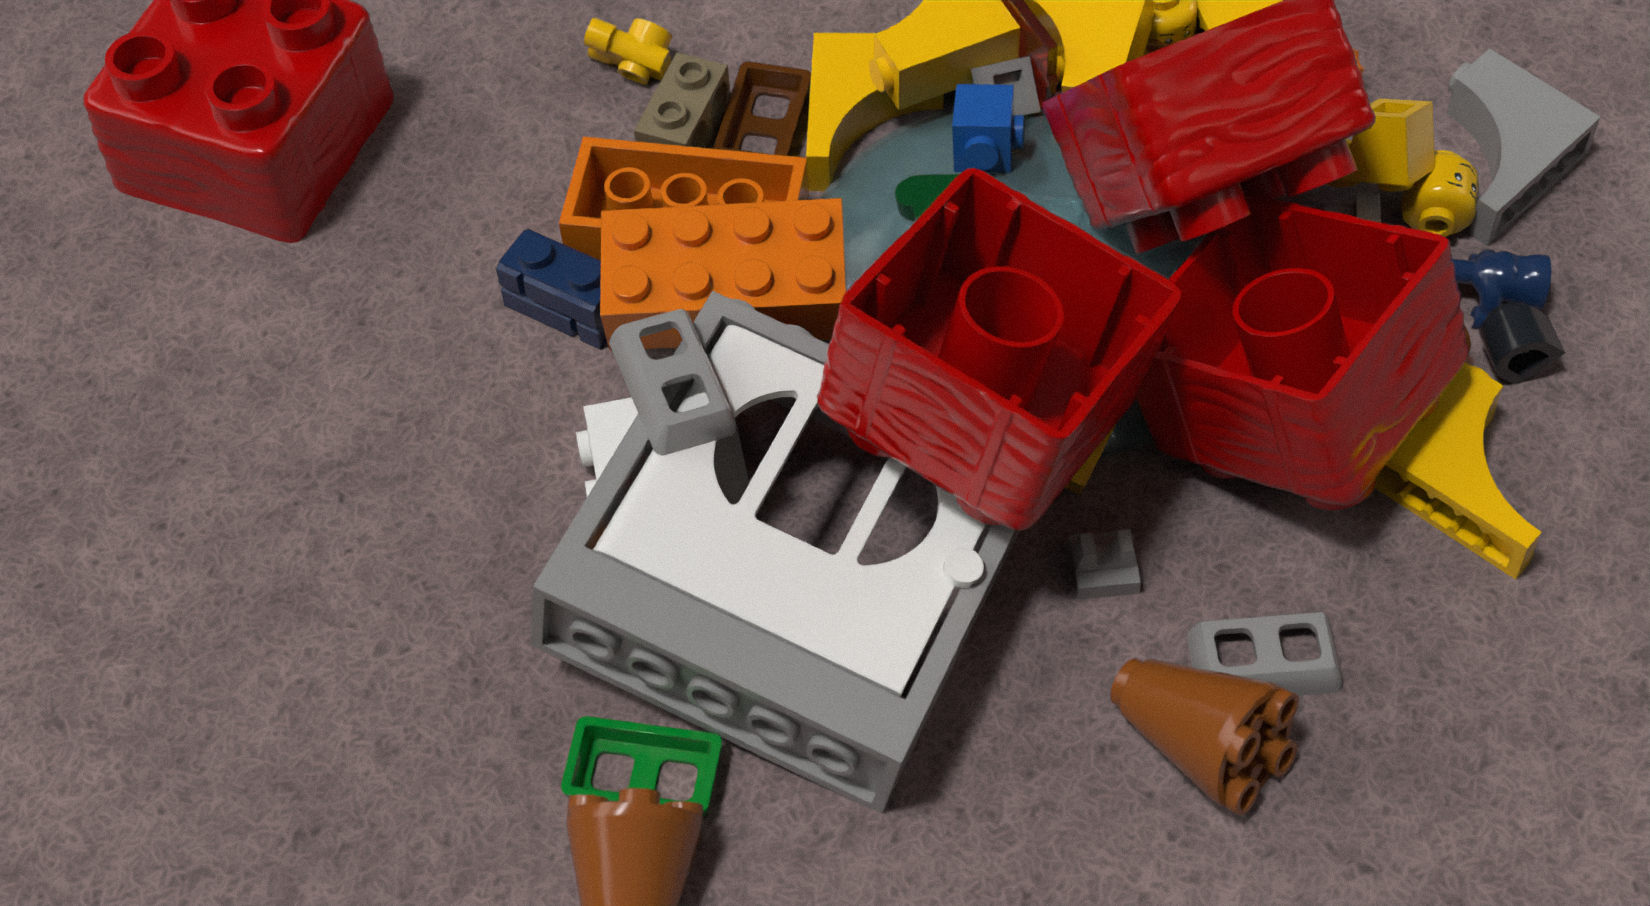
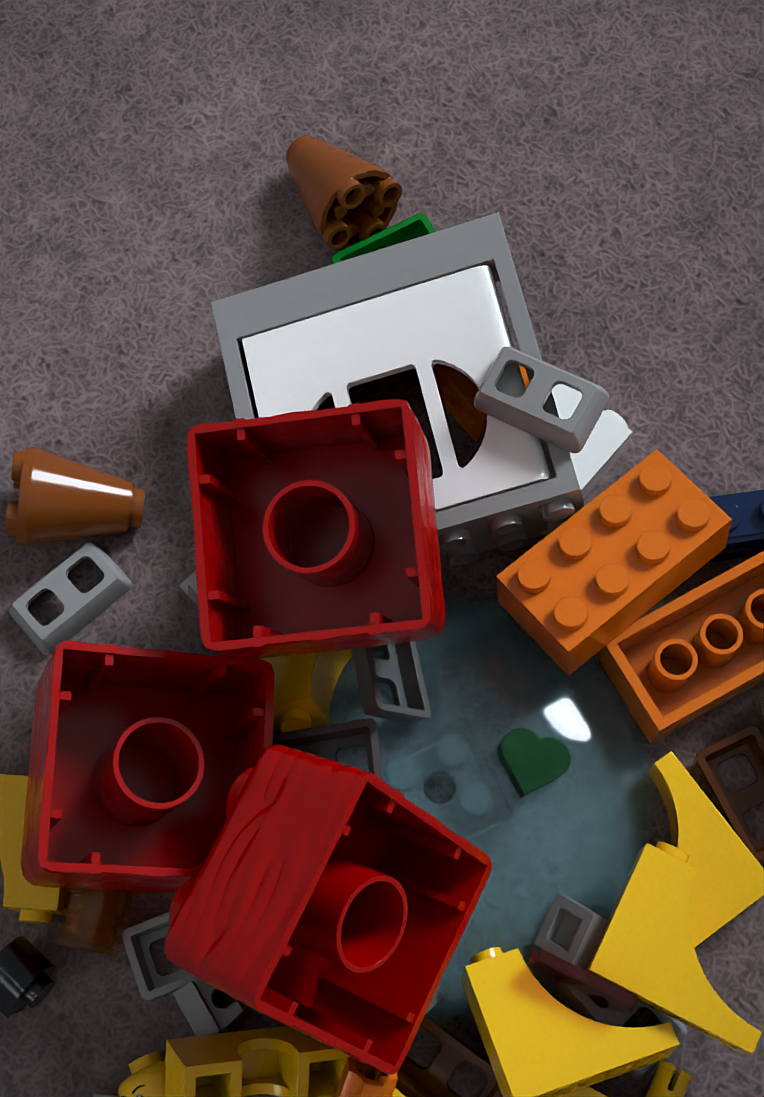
camera: 145 degrees right, 15 degrees up
(985, 128) = (543, 855): blue brick -> none
(1506, 279) = (66, 1042): dark blue piece -> none

